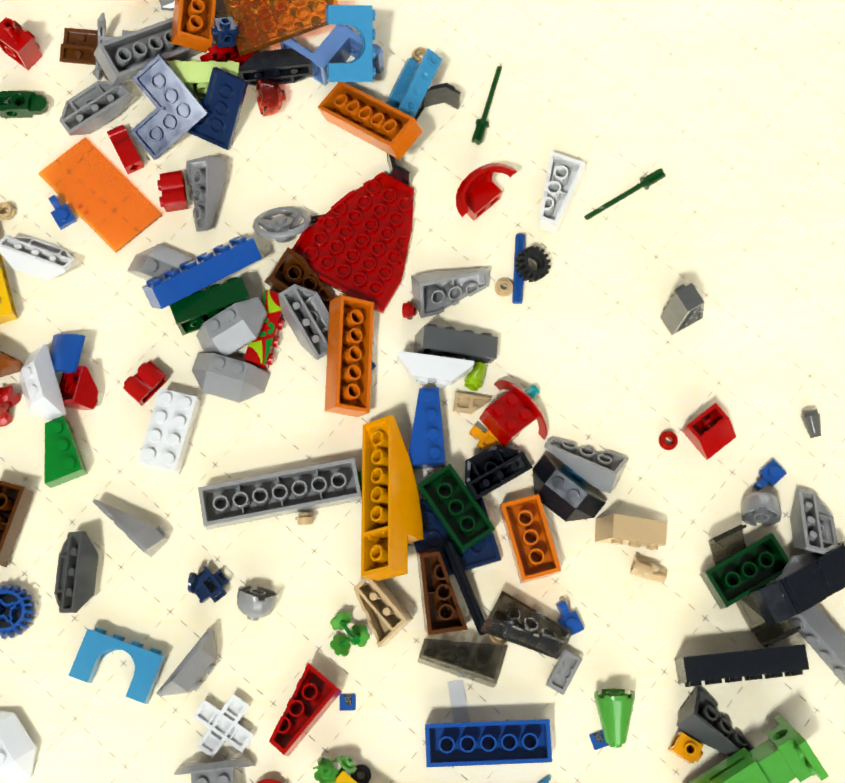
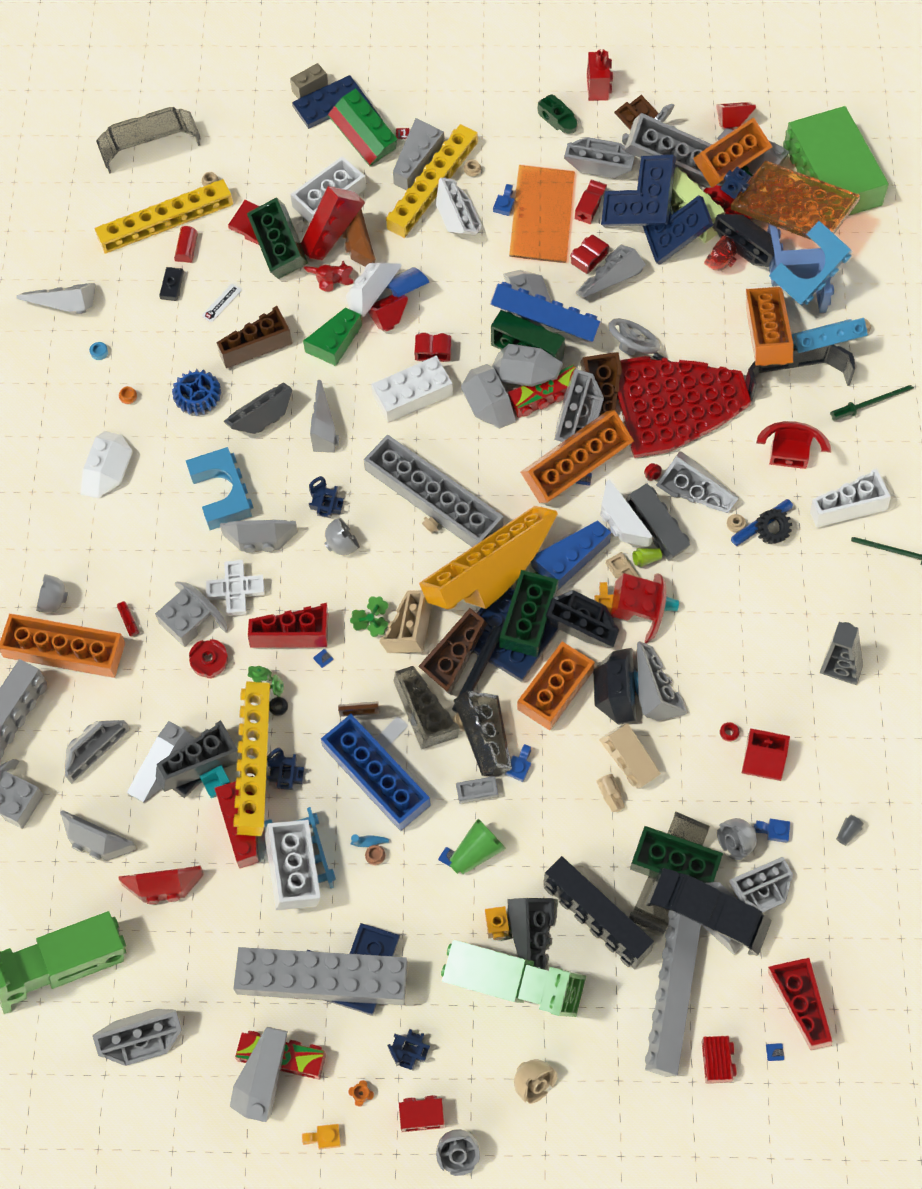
camera: 55 degrees right, 10 degrees down
(422, 711) = (362, 708): none -> reddish brown slope

